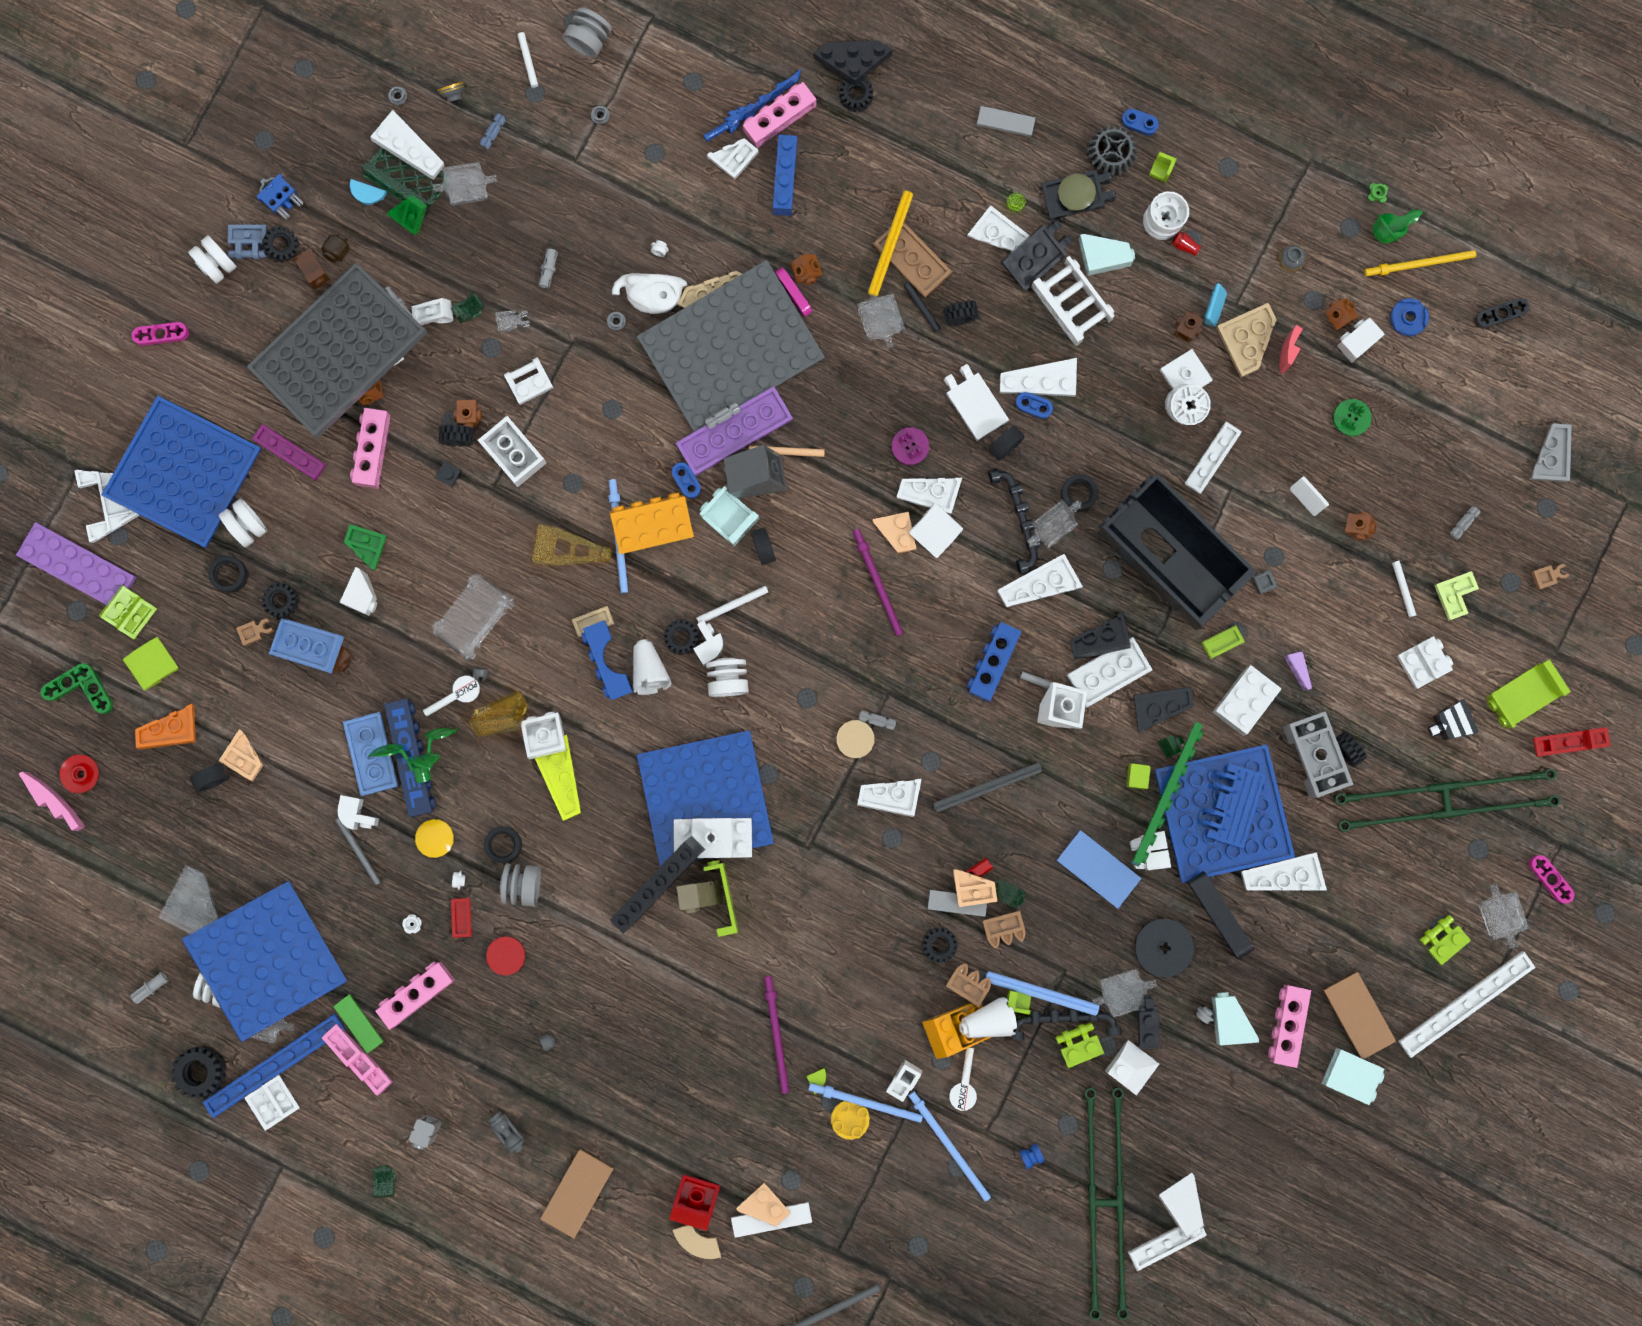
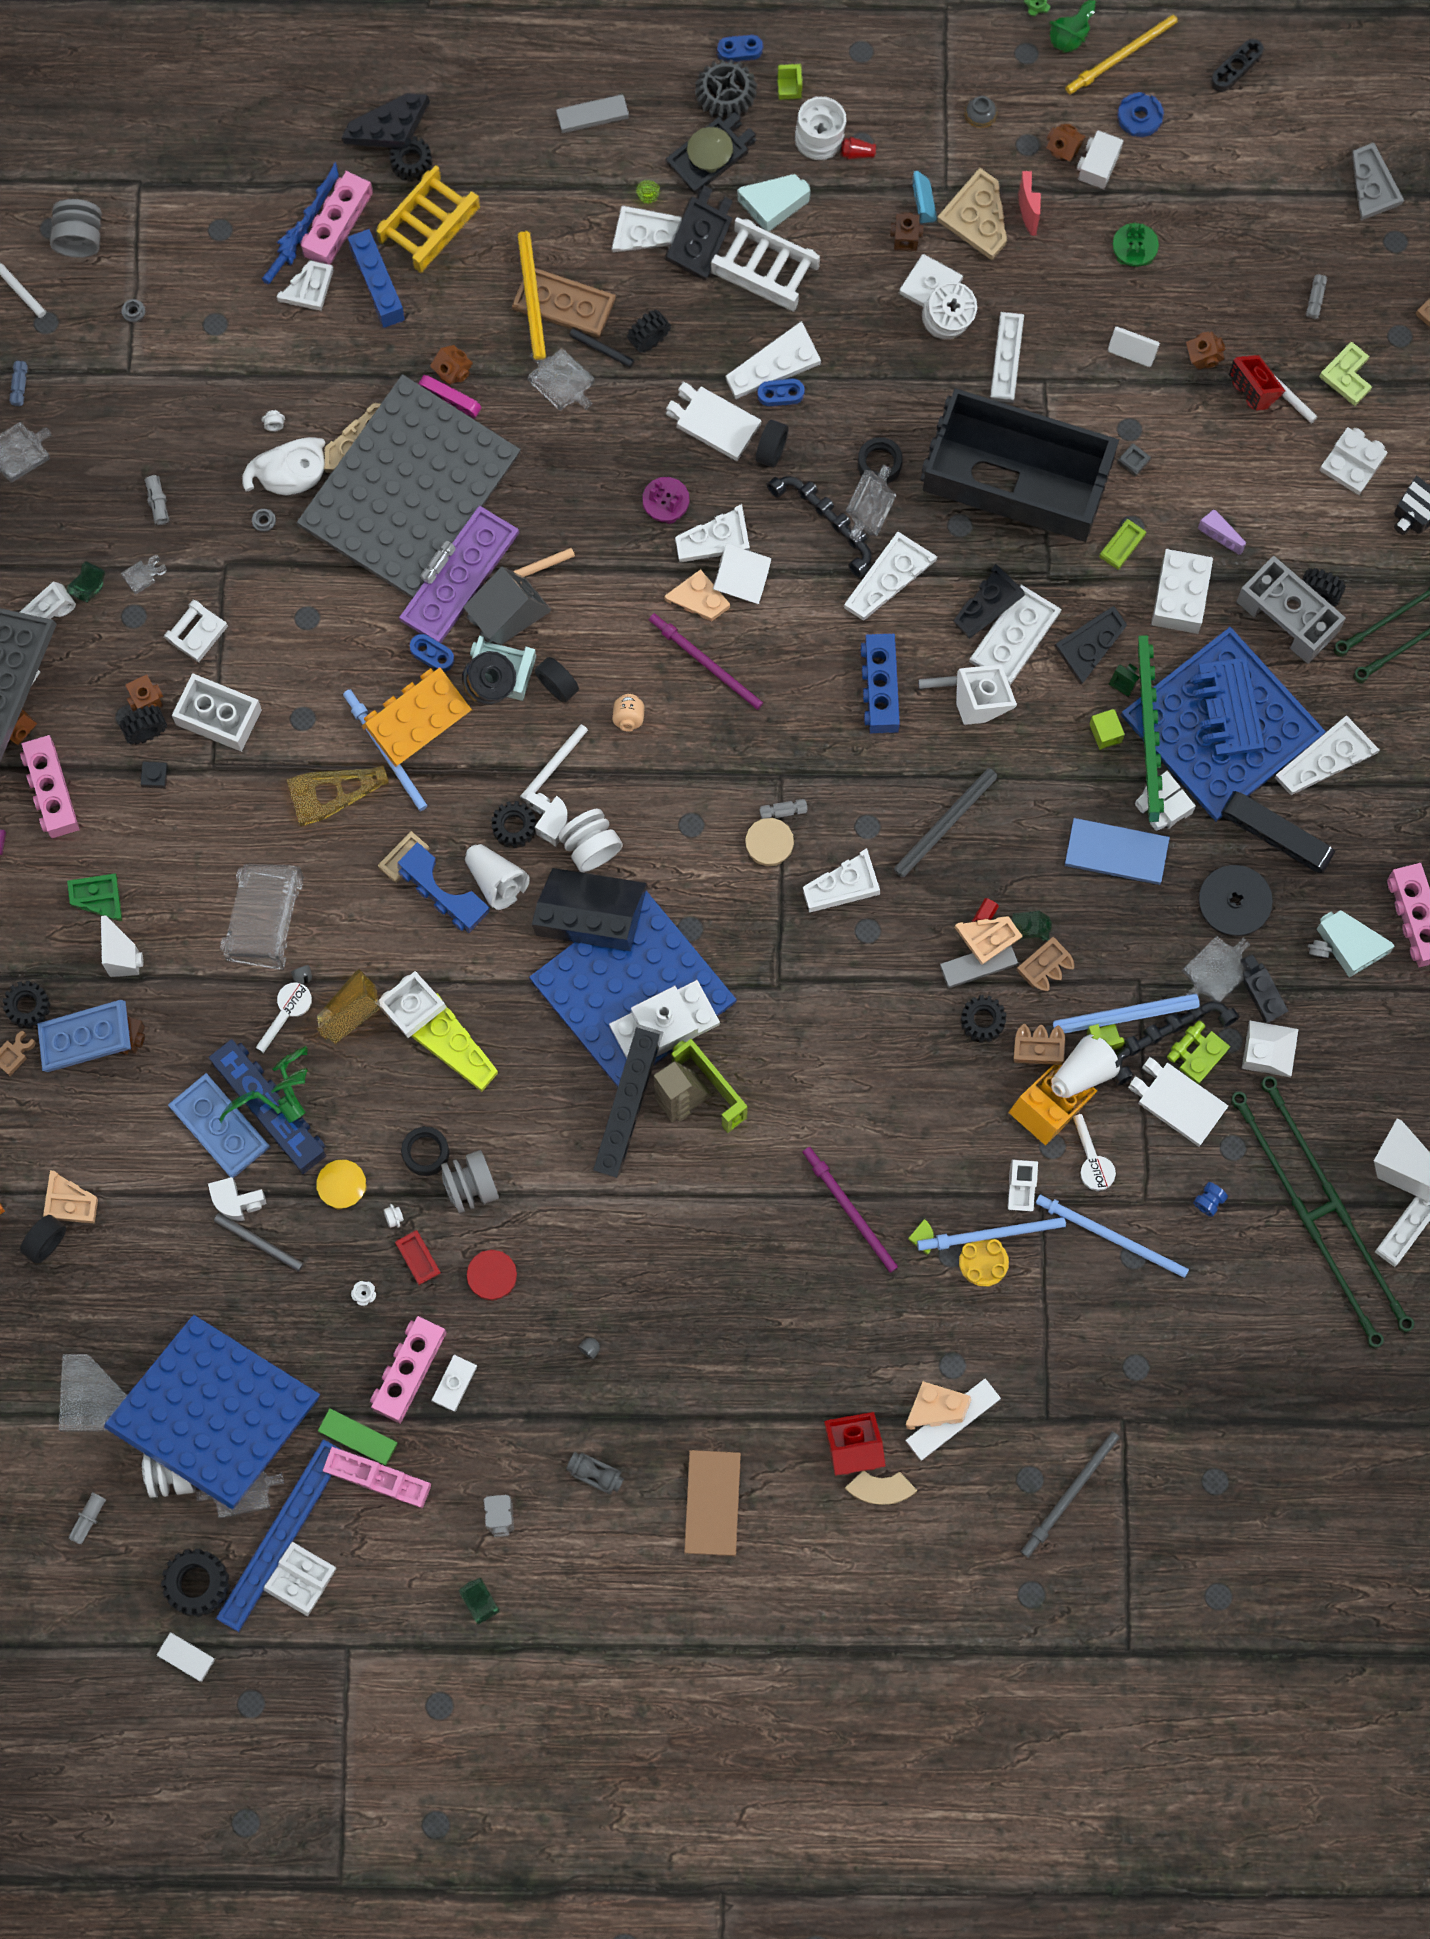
camera: 25 degrees left, 10 degrees down
(170, 1117) = (185, 1657): none -> white tile
(442, 1019) = (454, 1383): none -> white plate
(703, 726) = (589, 909): none -> black slope
(706, 514) = (501, 671): none -> black wheel
(802, 594) = (628, 712): none -> light nougat head
(860, 157) = (437, 238): none -> yellow fence
(1047, 1074) = (1178, 1101): none -> white tile
(1384, 569) = (1255, 381): none -> red slope

